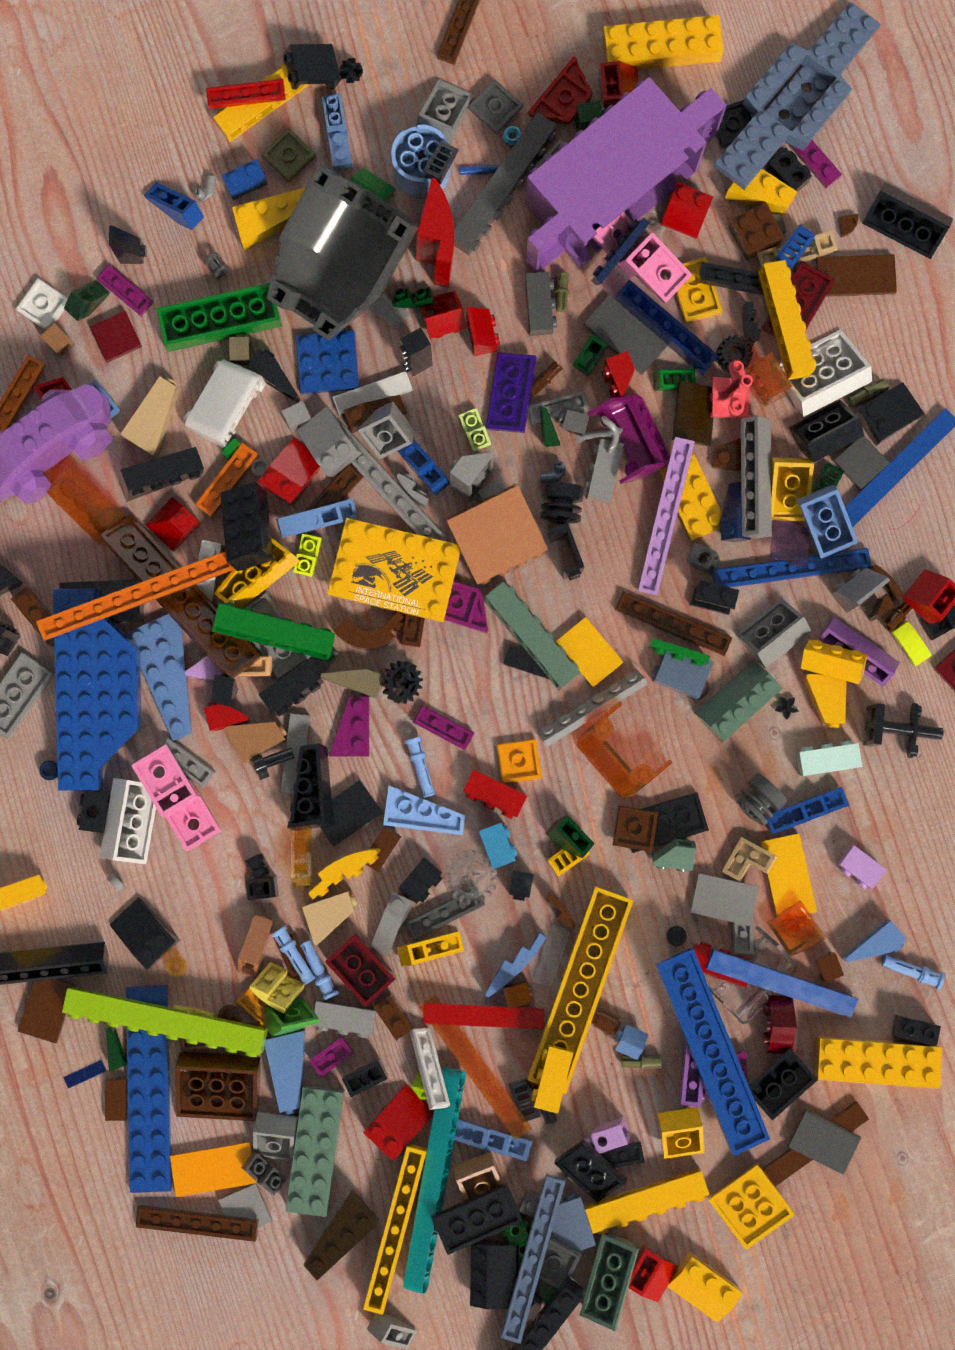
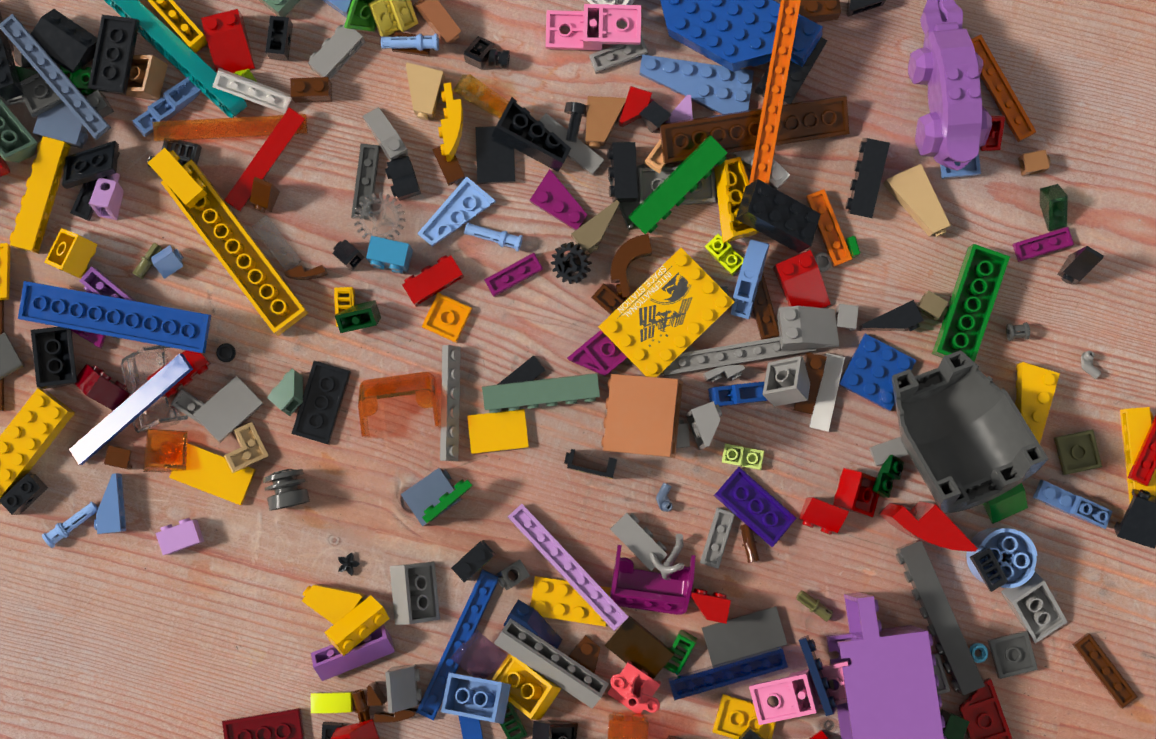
camera: 125 degrees right, 0 degrees up
(42, 304) = (1072, 170): white tile -> none
(83, 501) = (884, 103): clear orange slope -> none
(116, 336) = (1007, 213): dark red tile -> none
(173, 524) = (820, 163): red slope -> none
(175, 205) = (1091, 329): blue slope -> none
(223, 402) = (896, 264): white windscreen -> none
(244, 179) = (1078, 400): blue brick -> none
(323, 979) = (378, 54): light blue pin -> none
(331, 1056) = (313, 23): magenta plate -> none
(351, 70) = (1120, 550): black gear -> none
(360, 969) = (364, 86): dark red brick -> none
(415, 352) = (837, 444): black brick -> none
(430, 949) = (344, 151): yellow slope -> none
(481, 169) = (966, 605): blue piece -> none
(510, 970) = (287, 203): medium blue slope -> none
(540, 303) = (816, 580): dark grey brick -> none
(549, 433) = (699, 515): dark green slope -> none
(561, 504) = (634, 486): black wheel -> none
(573, 420) = (698, 542): dark grey brick -> none
(590, 354) = (744, 593): dark green slope -> none
(605, 1021) = (197, 252): reddish brown brick -> none
(635, 828) = (331, 374): reddish brown tile -> none
(673, 624) = (476, 516): reddish brown tile -> none
(738, 701) = (378, 526): sand green slope -> none
(739, 343) = (679, 723): black tyre -> none
(808, 810) = (253, 526): blue slope -> none
(829, 758) = (282, 569): light aqua brick -> none
(878, 726) = (281, 628): black piece -> none

